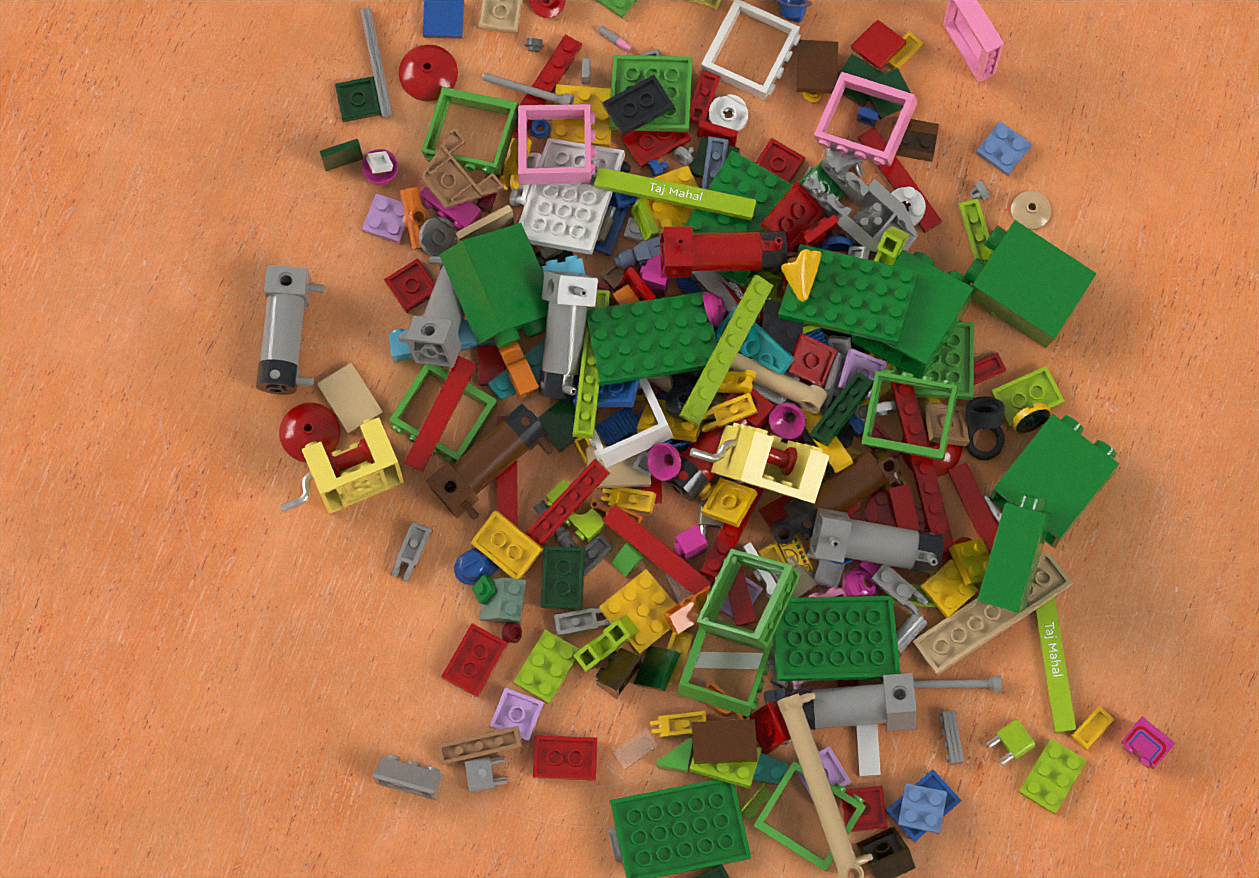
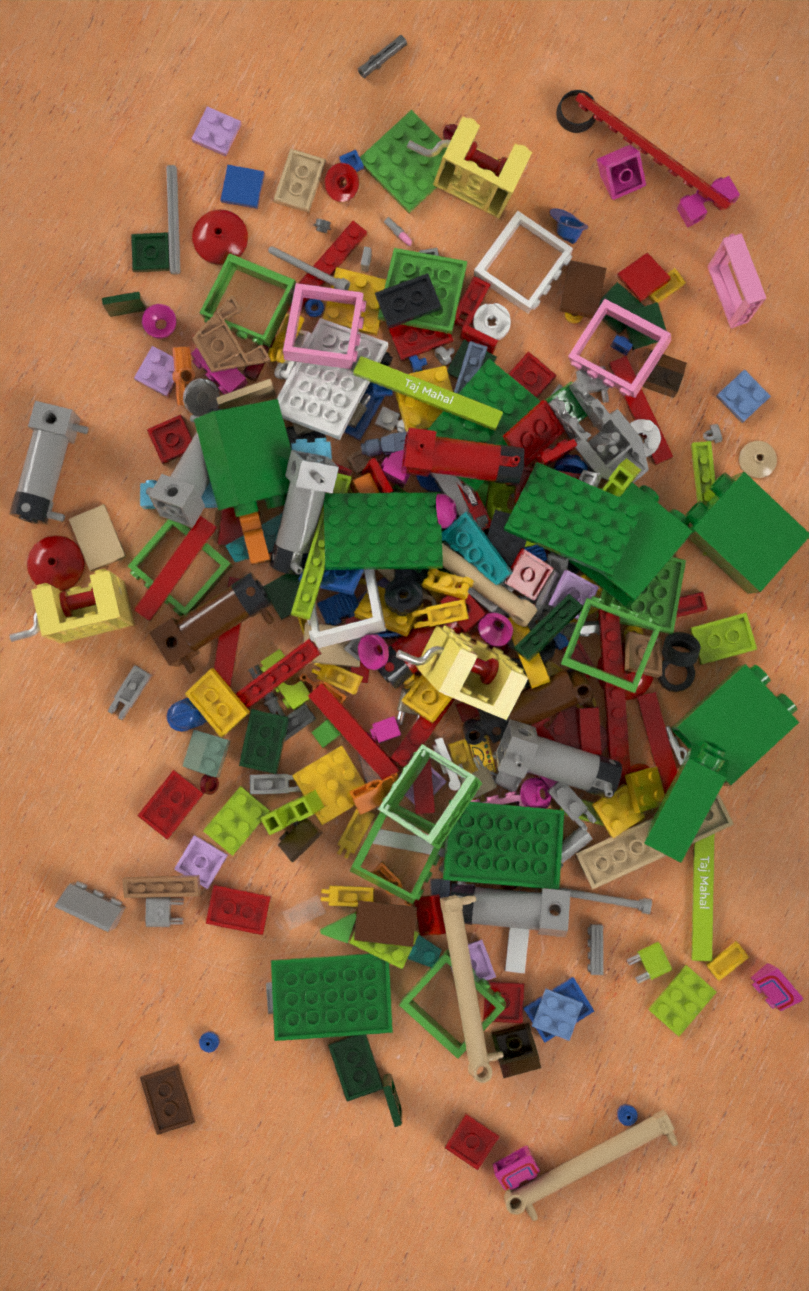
camera: 10 degrees right, 10 degrees up
(379, 162) = (158, 317): white plate -> none
(484, 589) = (190, 740): green plate -> none
(644, 219) = (395, 413): lime tile -> none
(657, 668) = (335, 842): dark green tile -> none
(726, 350) = (449, 555): lime plate -> none
(764, 796) = (414, 974): lime piece -> none
(801, 272) = (532, 492): yellow hat -> none
(1031, 419) = (723, 662): tile -> none

